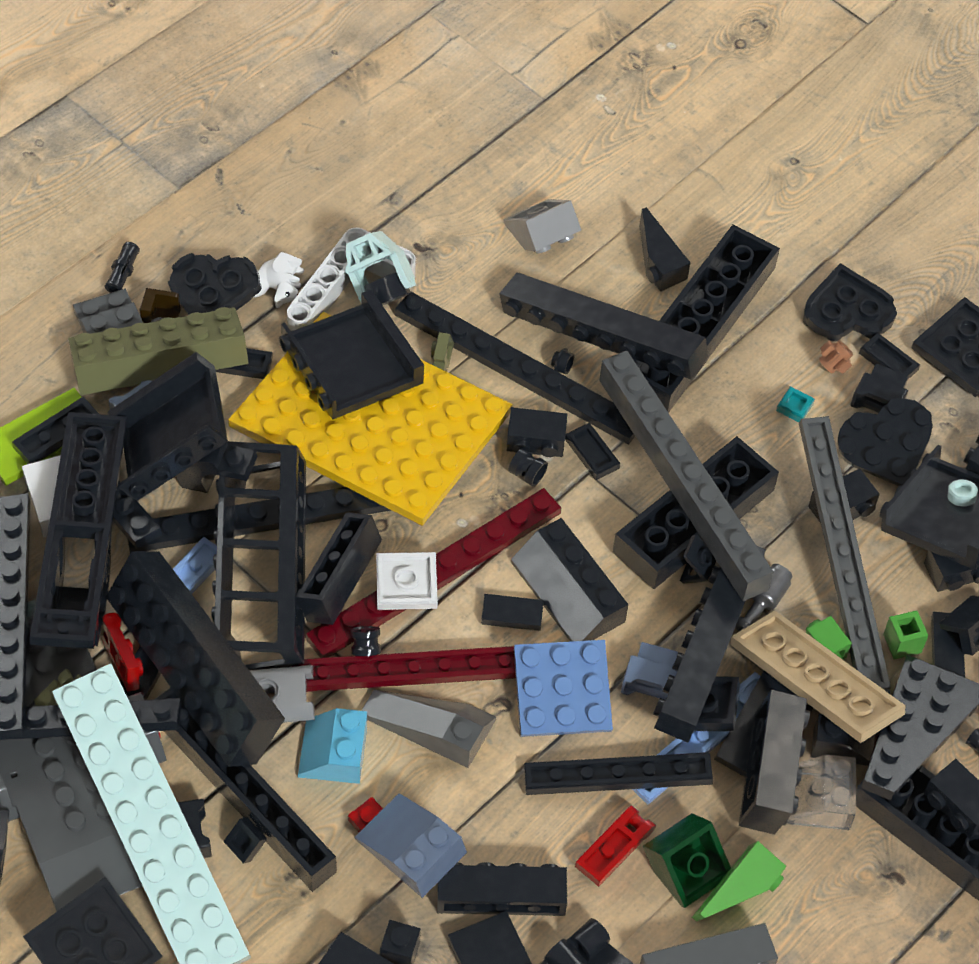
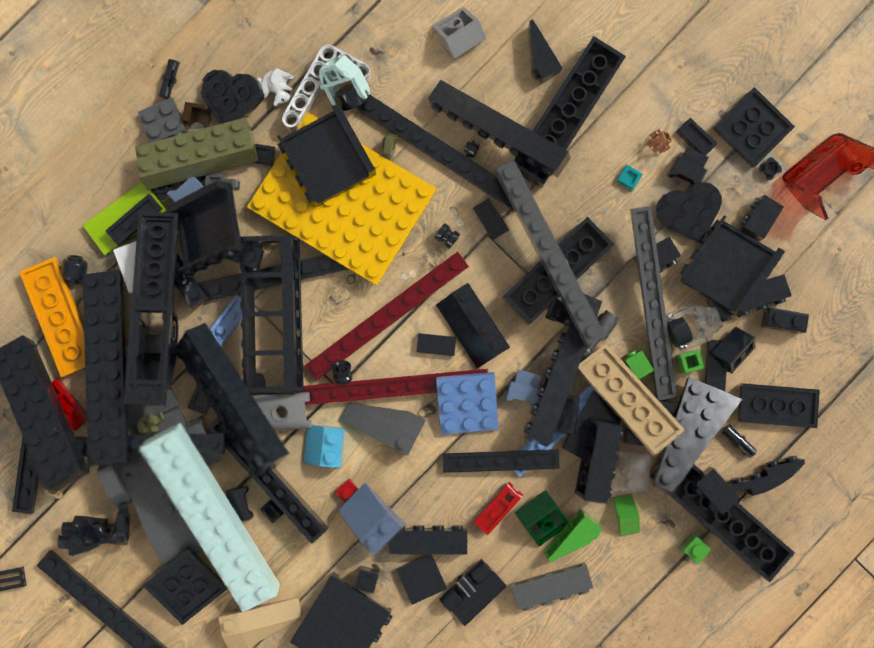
camera: 10 degrees right, 30 degrees up
(100, 405) = (162, 194): none -> black plate
(121, 652) = (188, 385): red plate -> none
(339, 568) = (323, 322): black brick -> none
(406, 581) = (367, 328): white tile -> none
(537, 431) = (453, 209): black brick -> none
(826, 861) = (626, 514): none -> bright green slope
(848, 304) = (672, 94): black plate -> none
(888, 592) = (706, 322): none -> clear piece
(940, 906) = (695, 548): none -> bright green brick
(962, 493) = (737, 252): light aqua tile -> none

